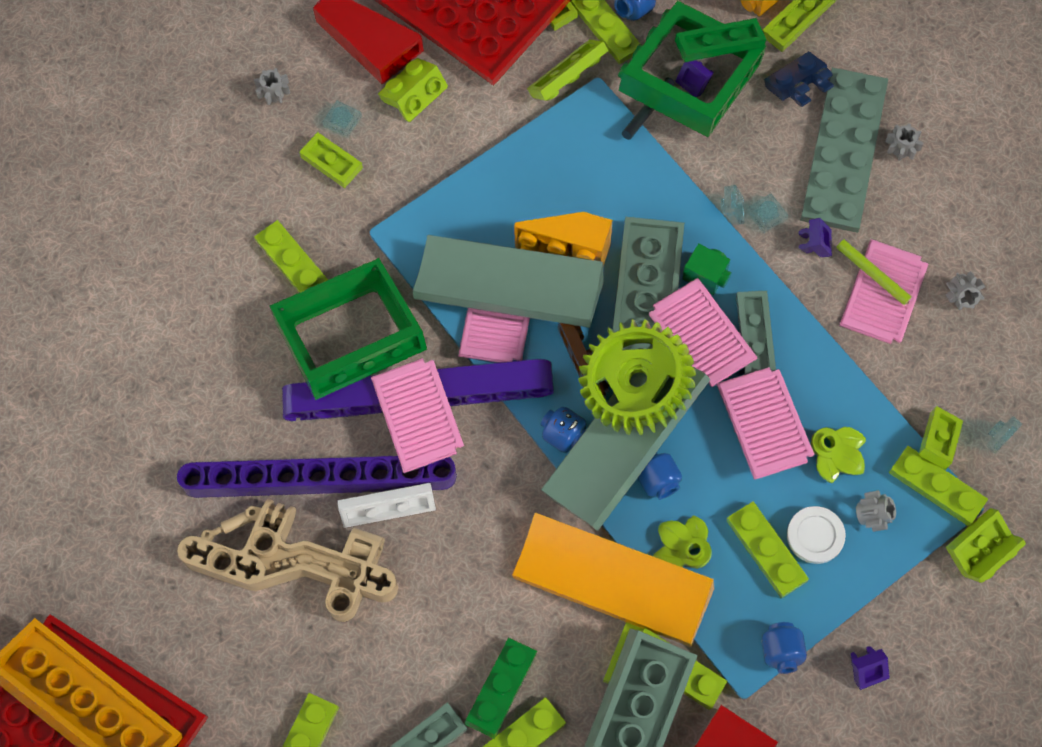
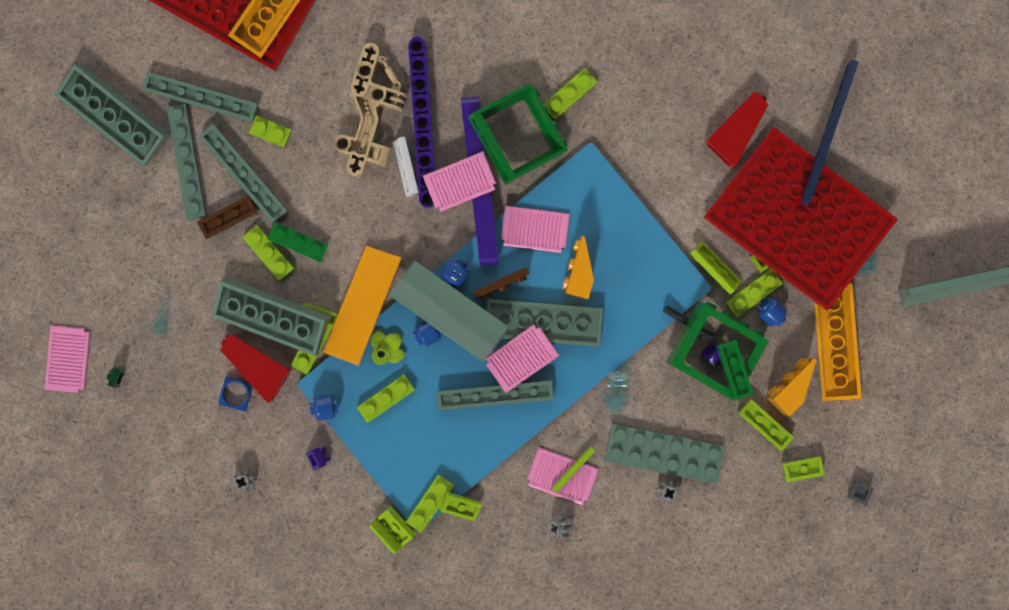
camera: 85 degrees right, 20 degrees up
(272, 86) = (691, 71): light grey gear -> none
(331, 160) = (642, 113): lime plate -> none
(342, 119) = (675, 118): clear light blue plate -> none
(414, 88) = (699, 164): lime bracket -> none
(509, 280) = (551, 234): sand green arch -> none
(617, 366) = (487, 303): lime gear -> none
(709, 266) = (568, 362): green brick -> none
(765, 422) = (463, 397): bright pink window -> none
(796, 76) = (717, 422): dark blue plate -> none
(816, 535) = (395, 428): white piece -> none
(819, 238) = (595, 435): dark purple tile -> none
(841, 455) = (446, 445): lime plate -> none
(876, 511) = (409, 464): light grey gear -> none
(1002, 433) = (465, 545): clear light blue plate -> none

